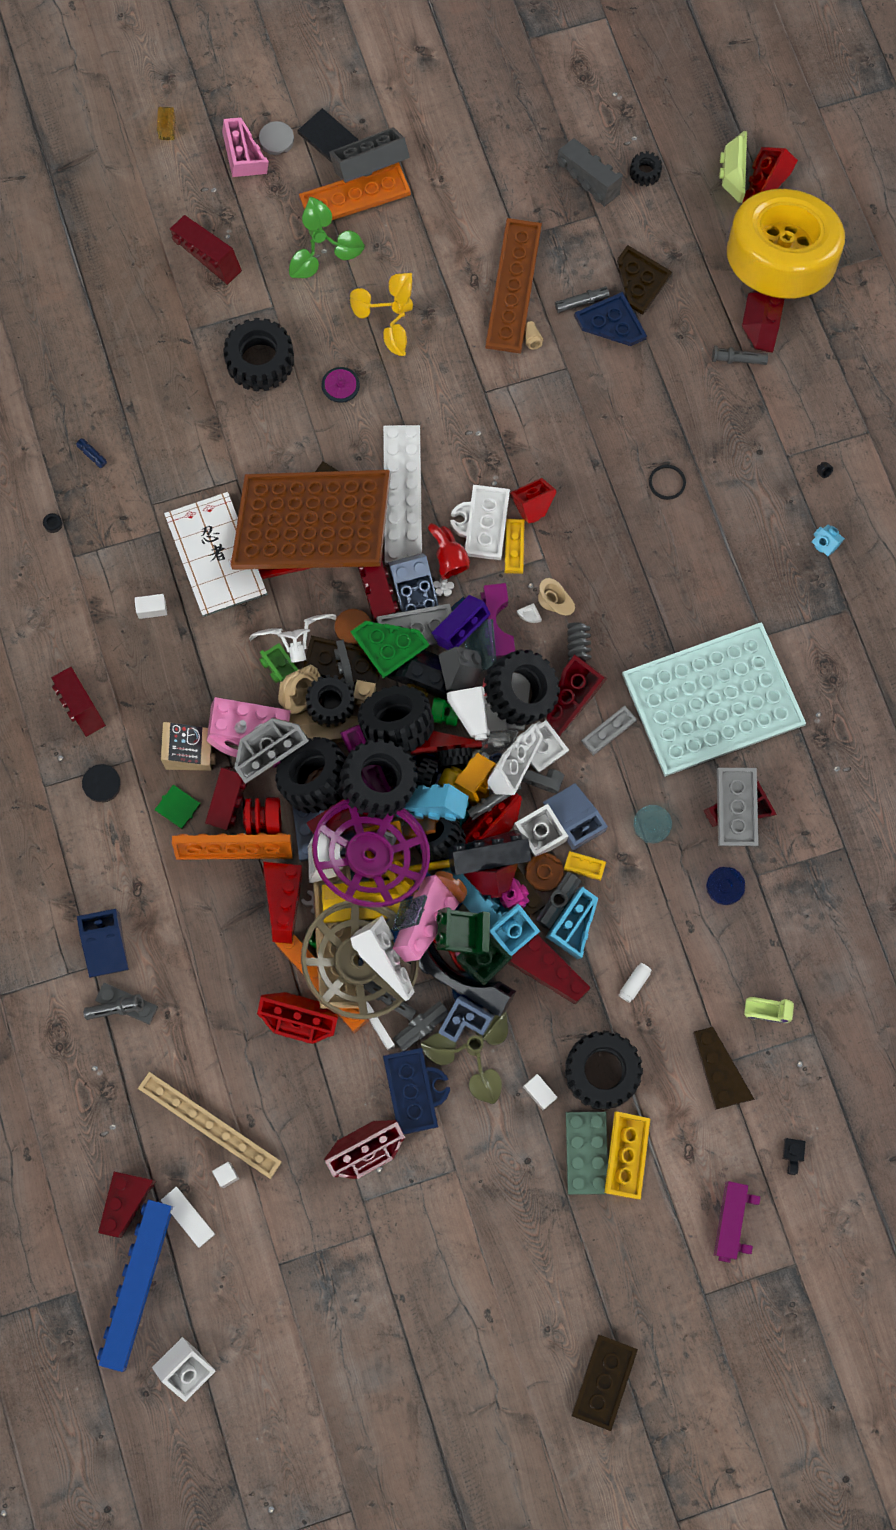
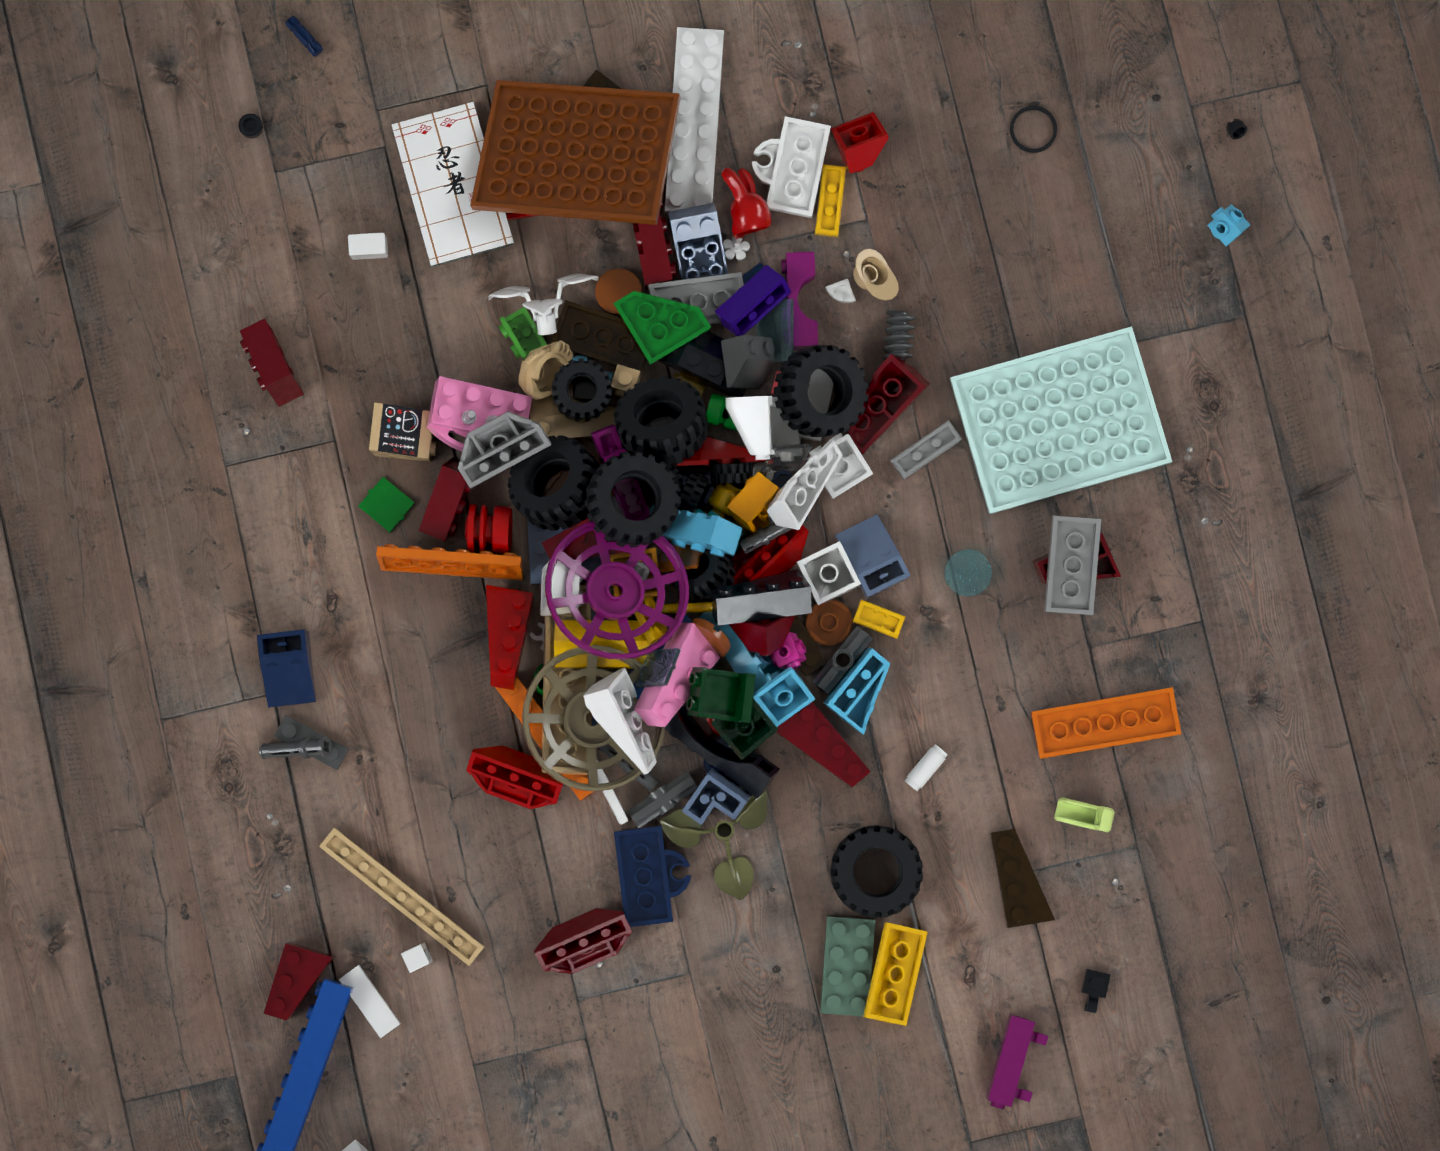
camera: 10 degrees right, 10 degrees up
(101, 783) = (294, 468): black tile -> none
(344, 665) = (603, 347): dark grey wing -> none
(540, 1092) = (798, 890): white piece -> none
(550, 782) = (847, 511): dark grey beam -> none
(725, 886) = (1049, 657): clear blue tile -> none
(777, 934) = (1105, 723): none -> orange plate

